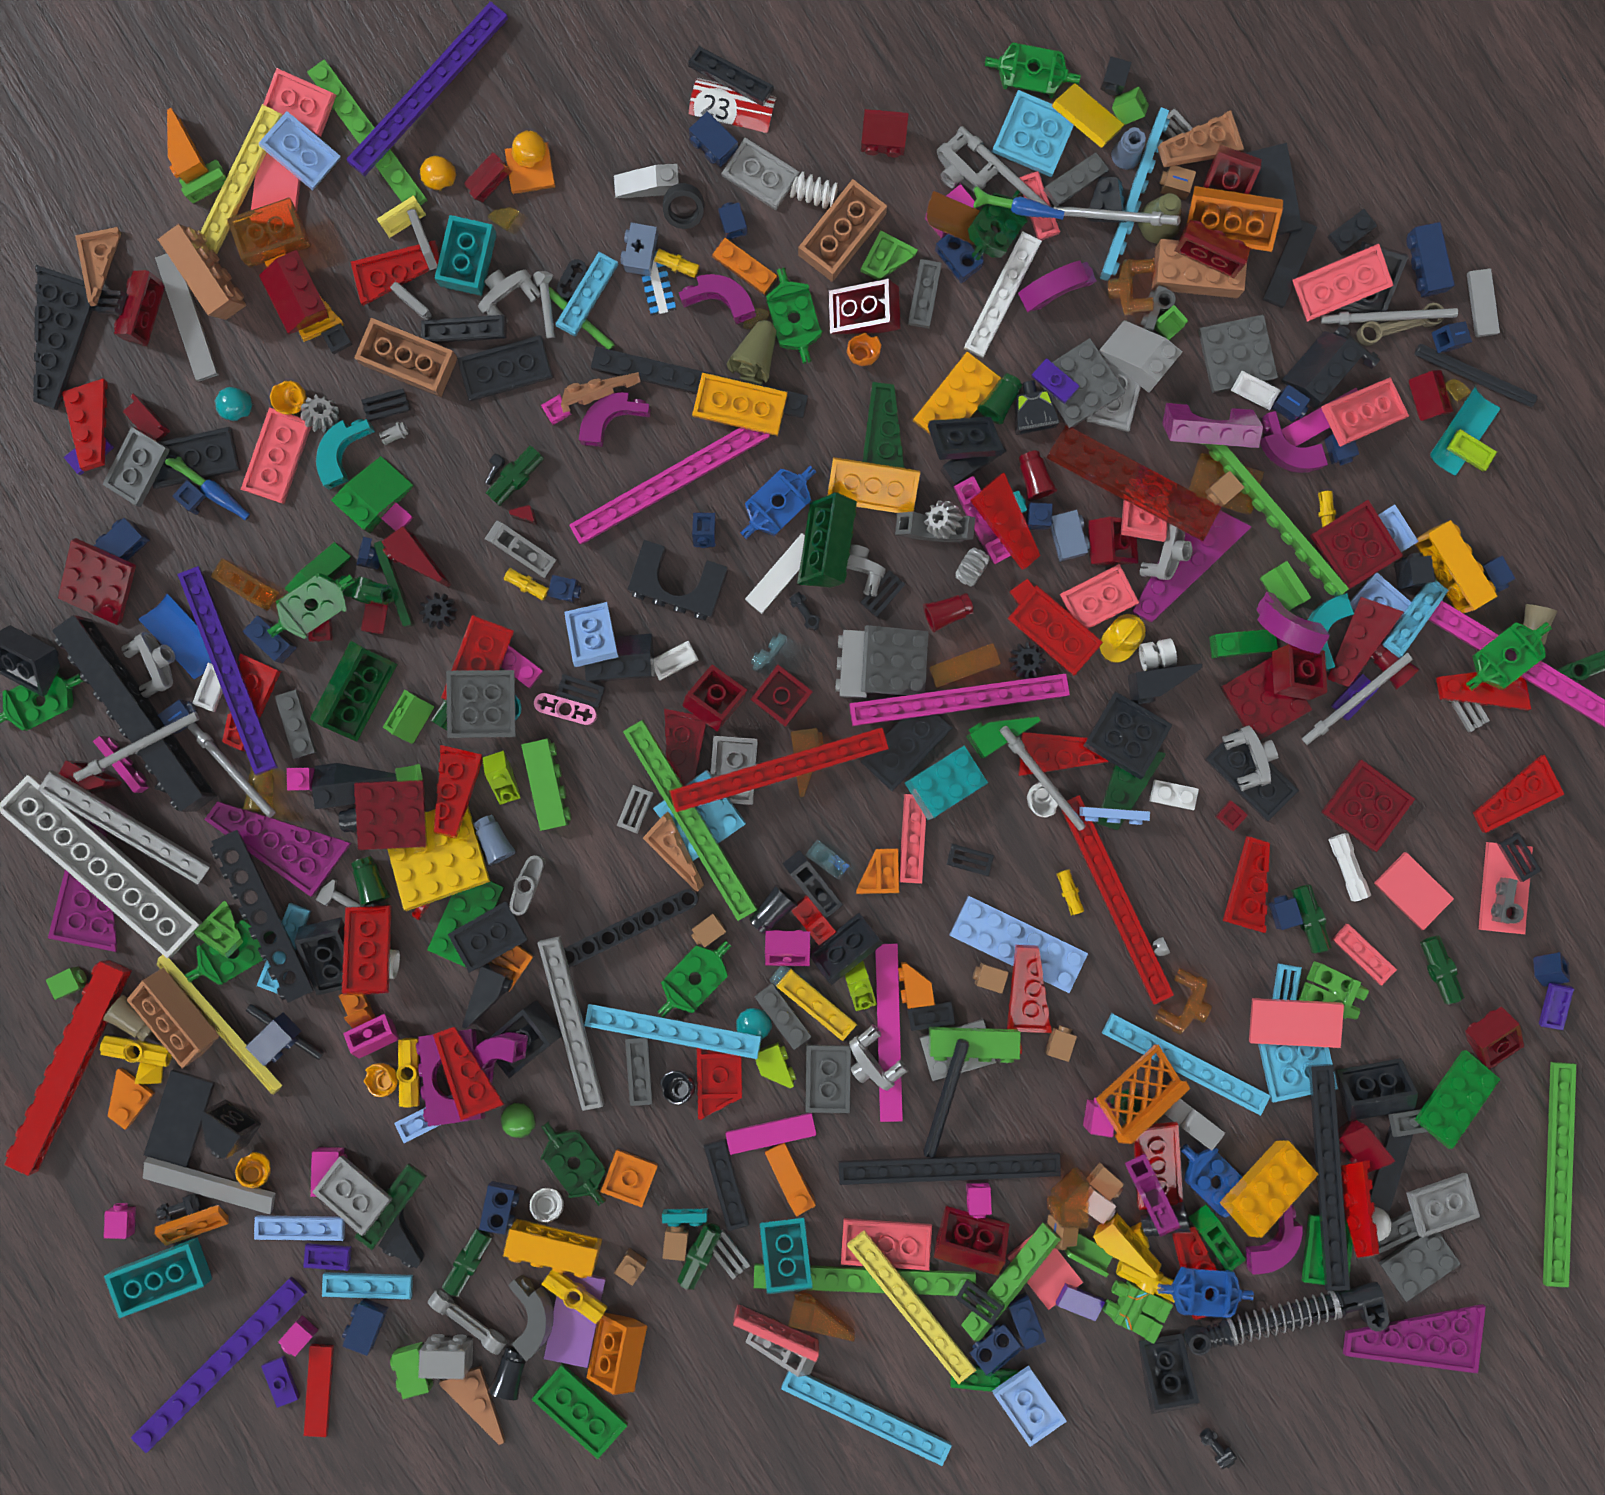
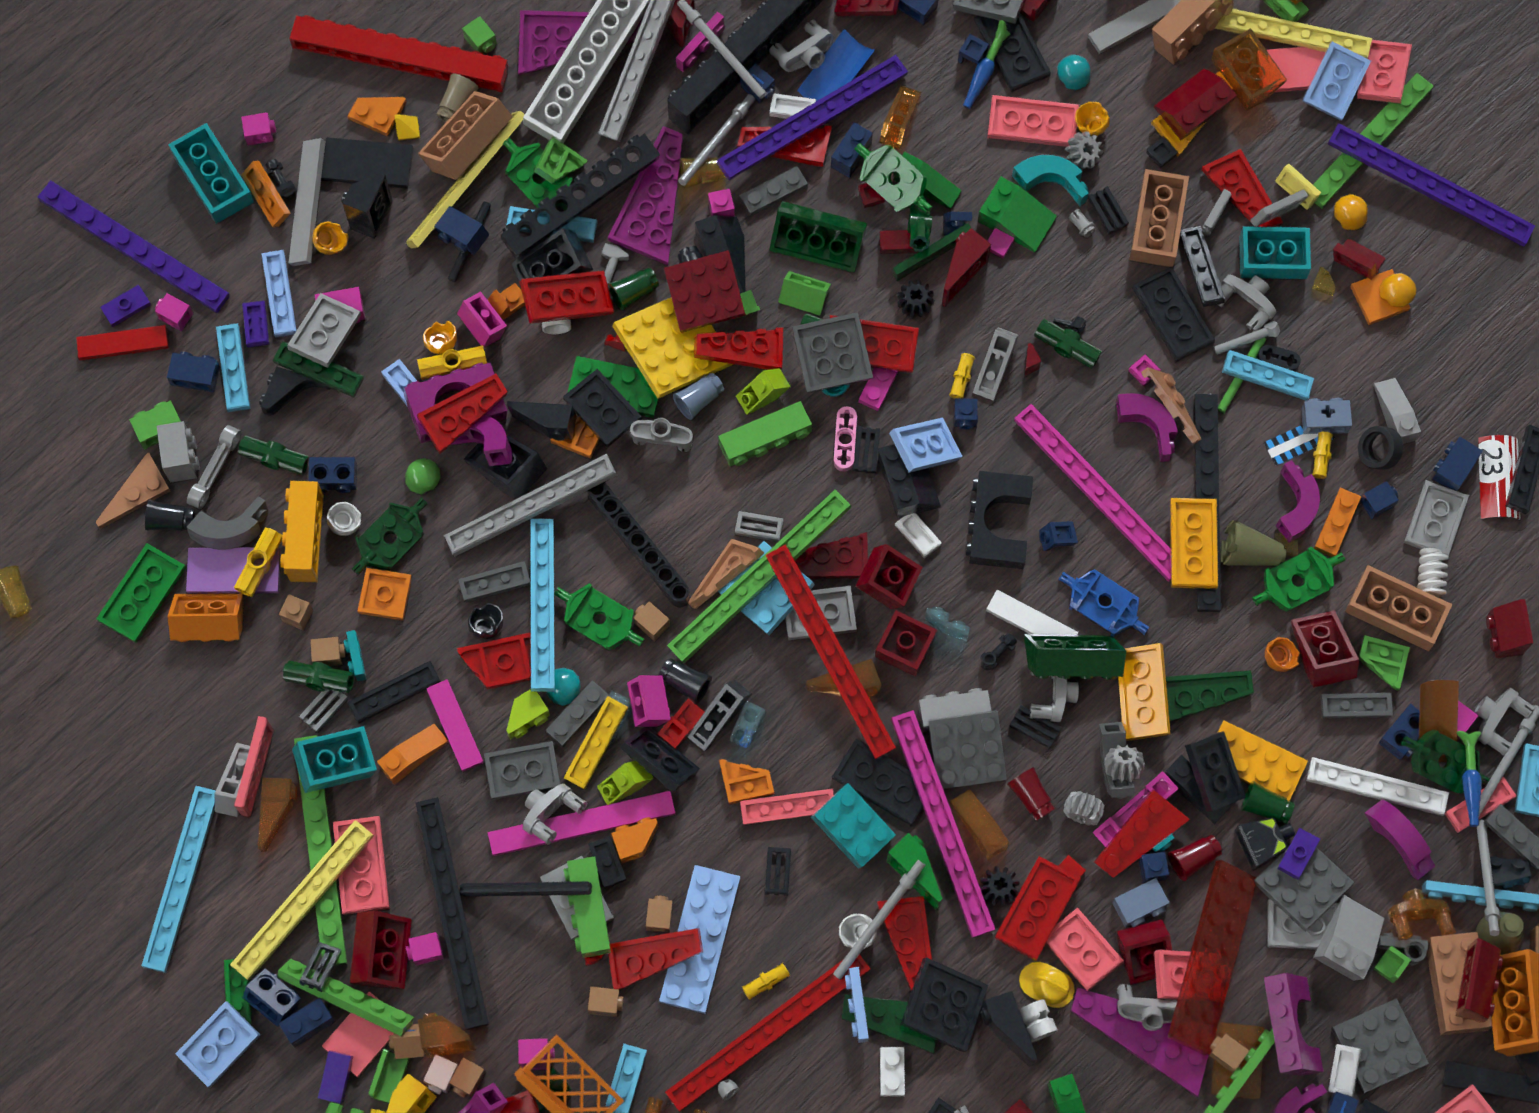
camera: 80 degrees right, 15 degrees down
(124, 1049) = (425, 100): yellow piece -> none

